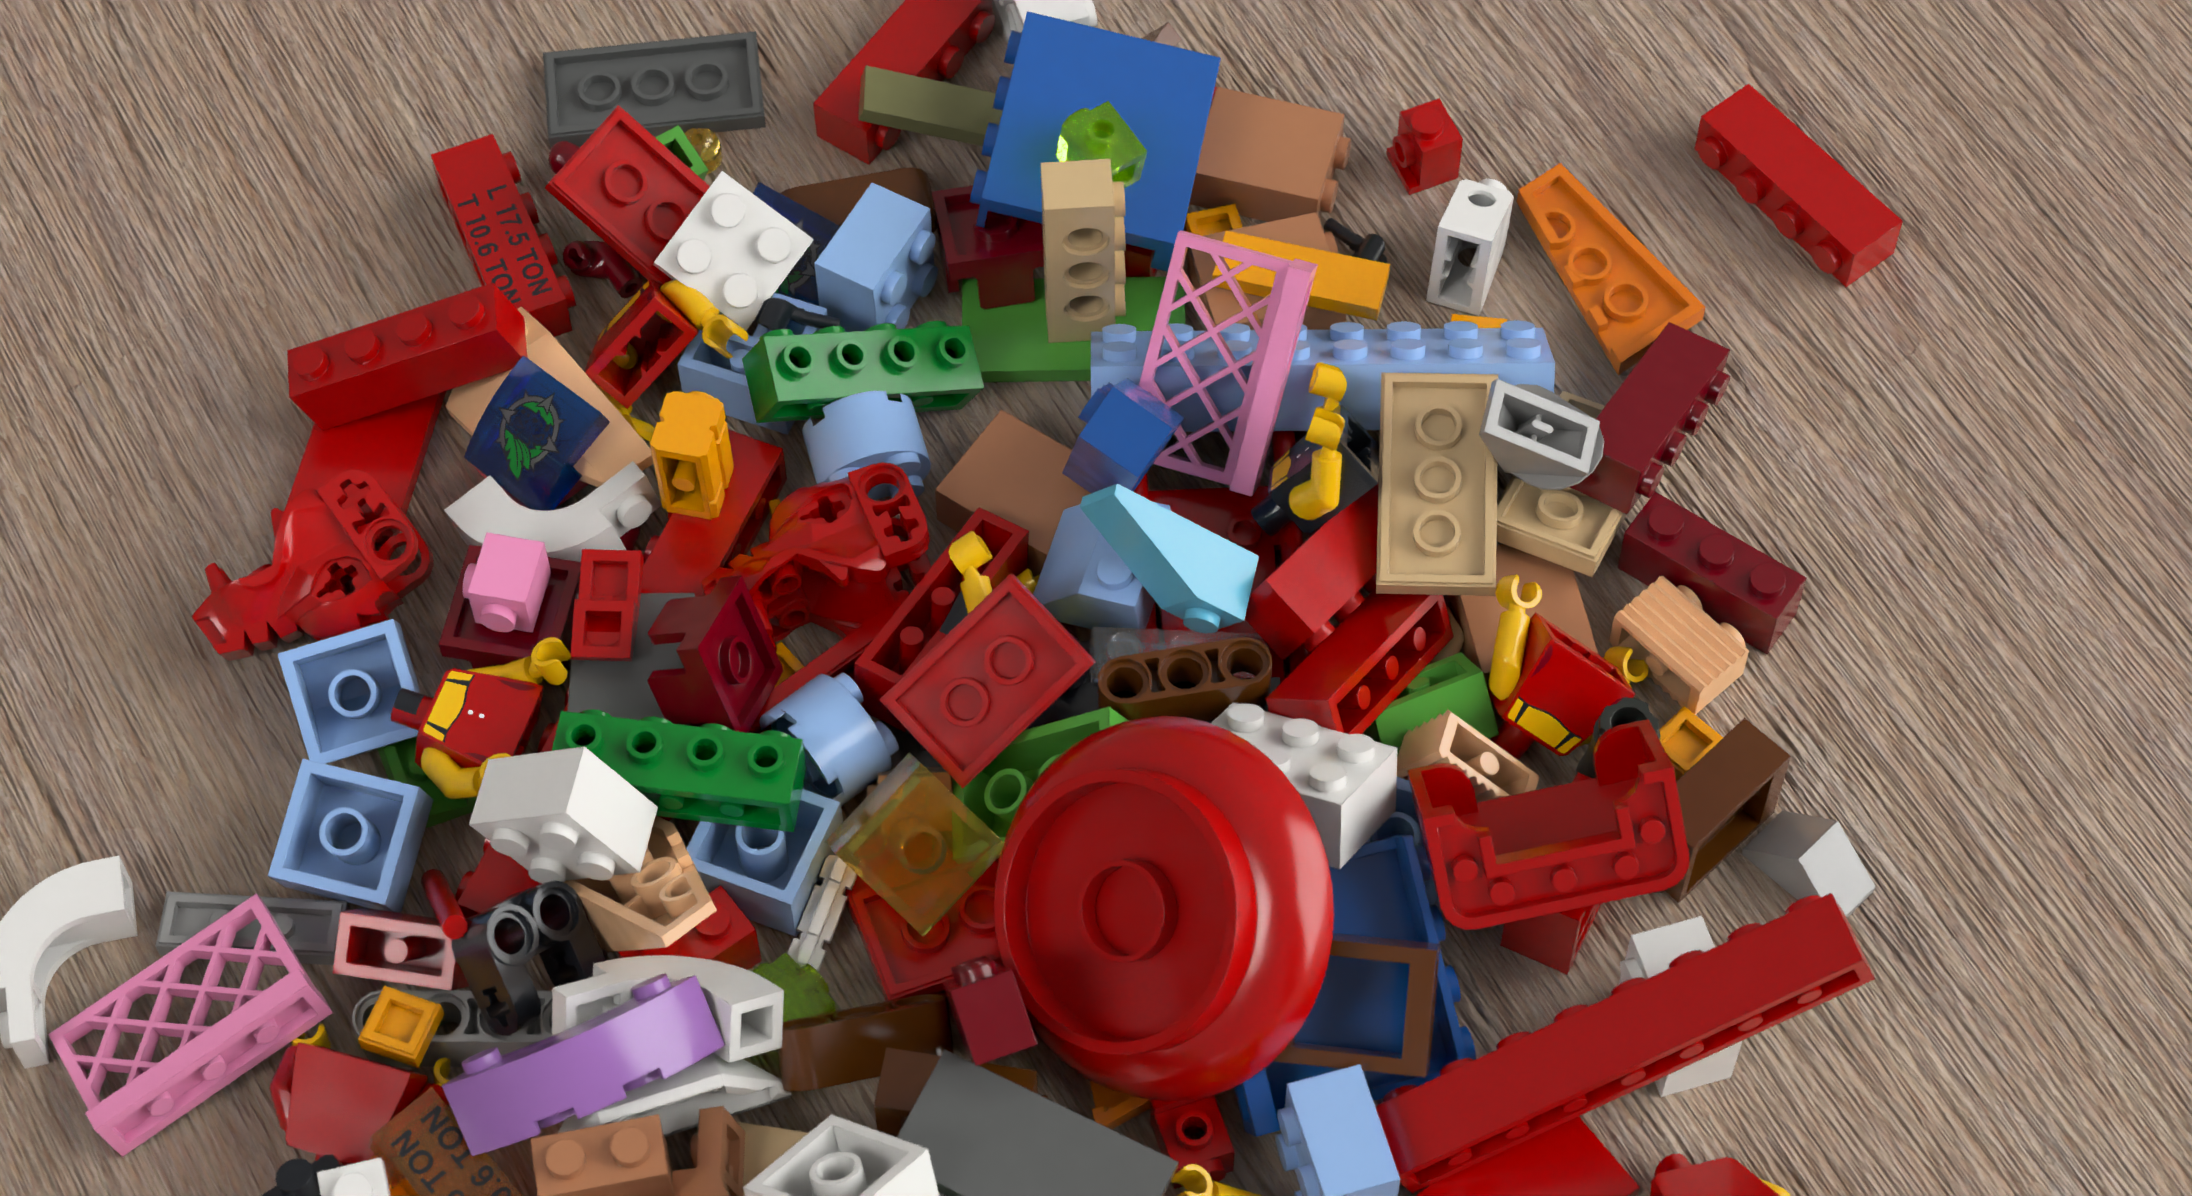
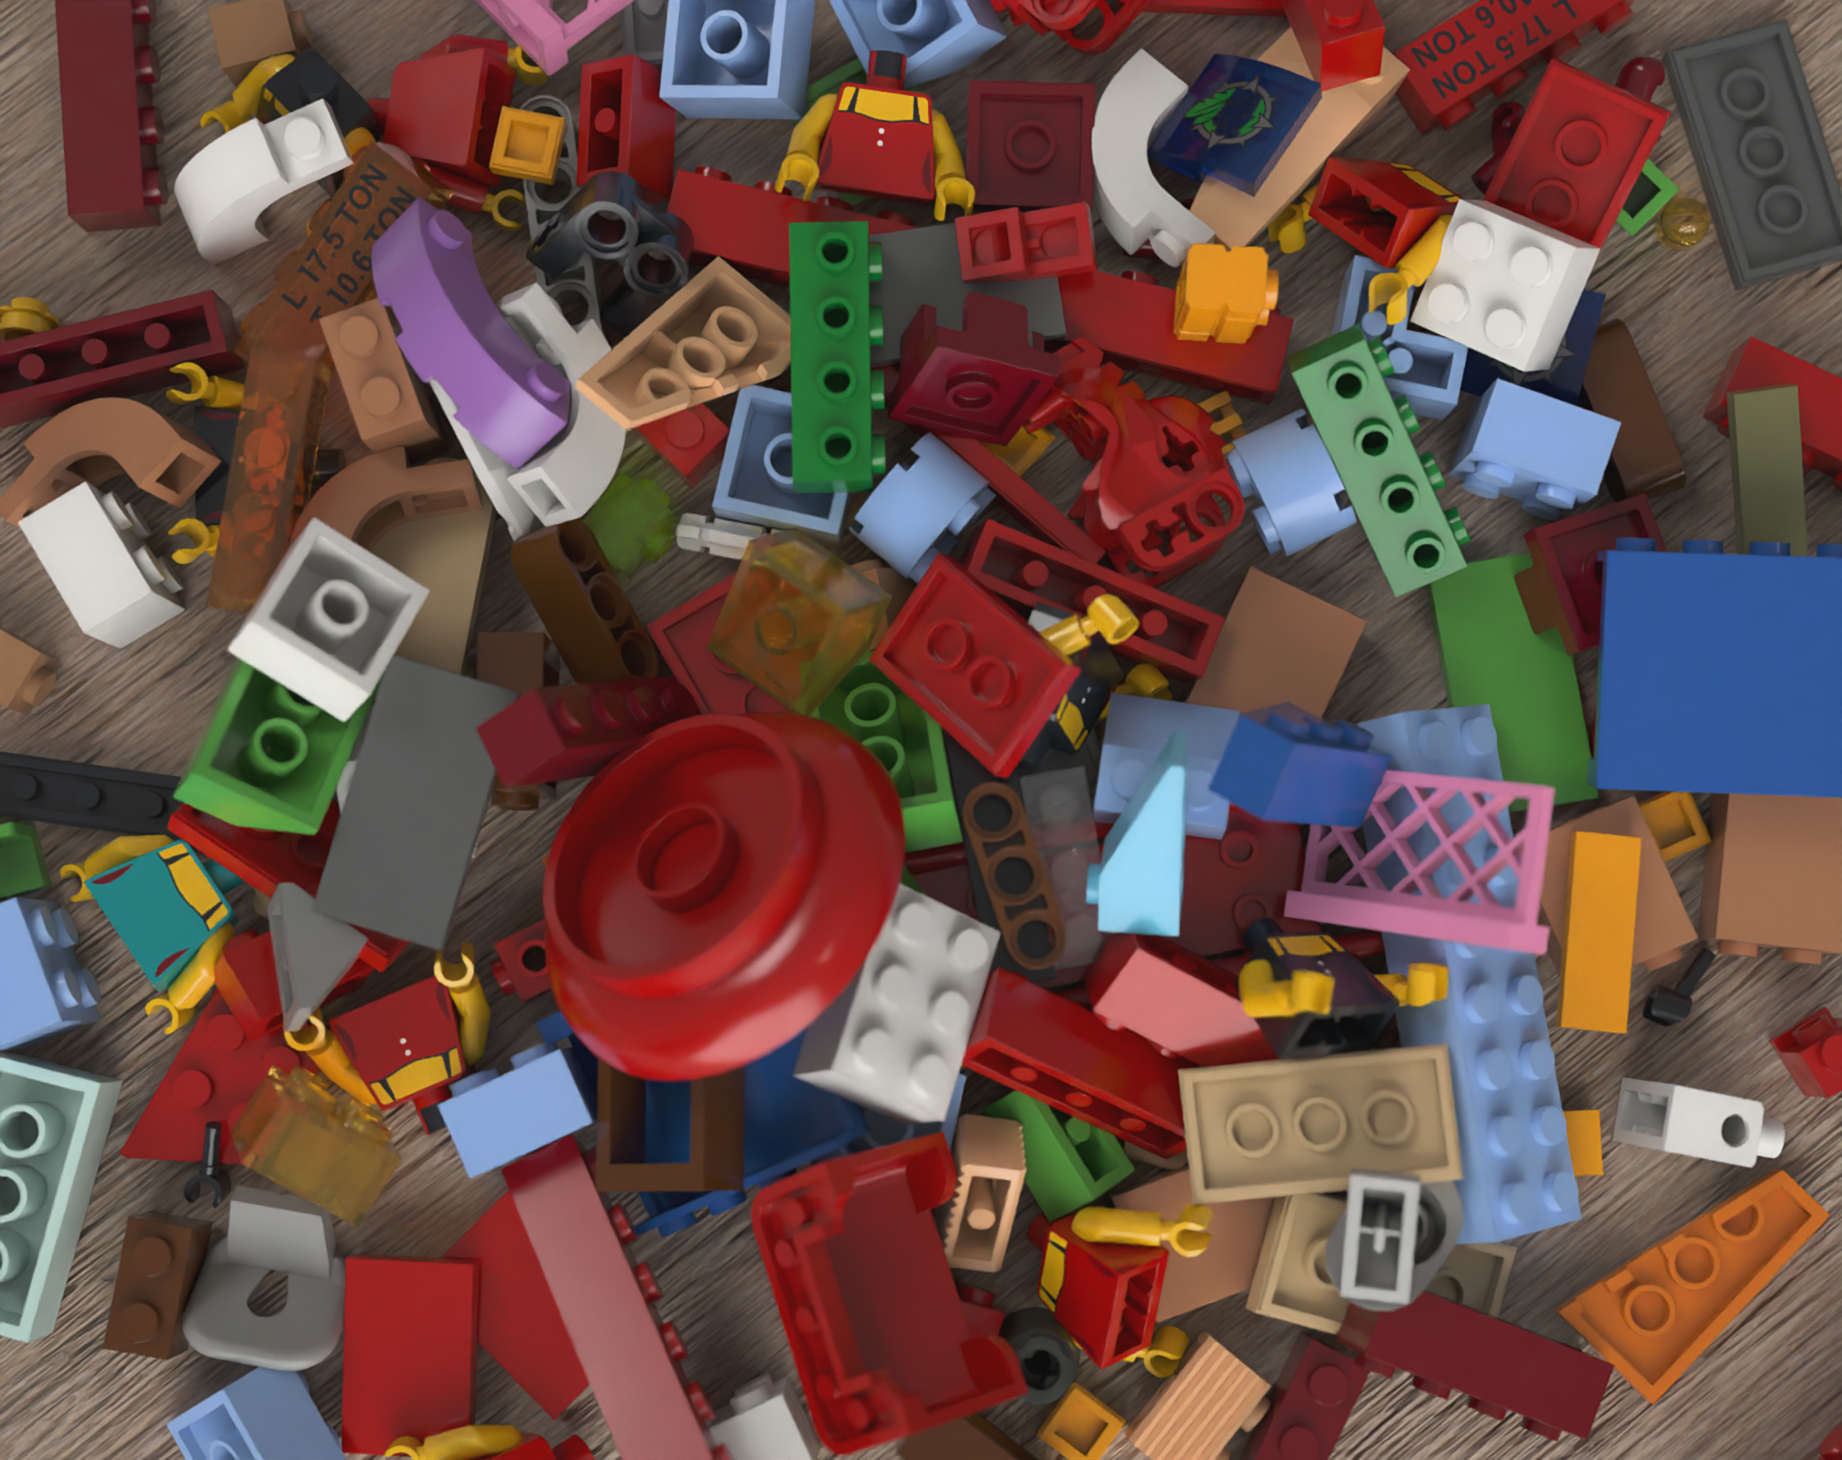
camera: 80 degrees right, 25 degrees up
(444, 904) = (666, 156): red bar -> none
(507, 583) = (1036, 132): bright pink brick -> none
(563, 815) = (741, 251): white brick -> none
(777, 313) = (1432, 351): black hand -> none
(1082, 248) = (1554, 675): tan brick -> none
(1102, 135) = (1689, 676): clear neon green brick -> none

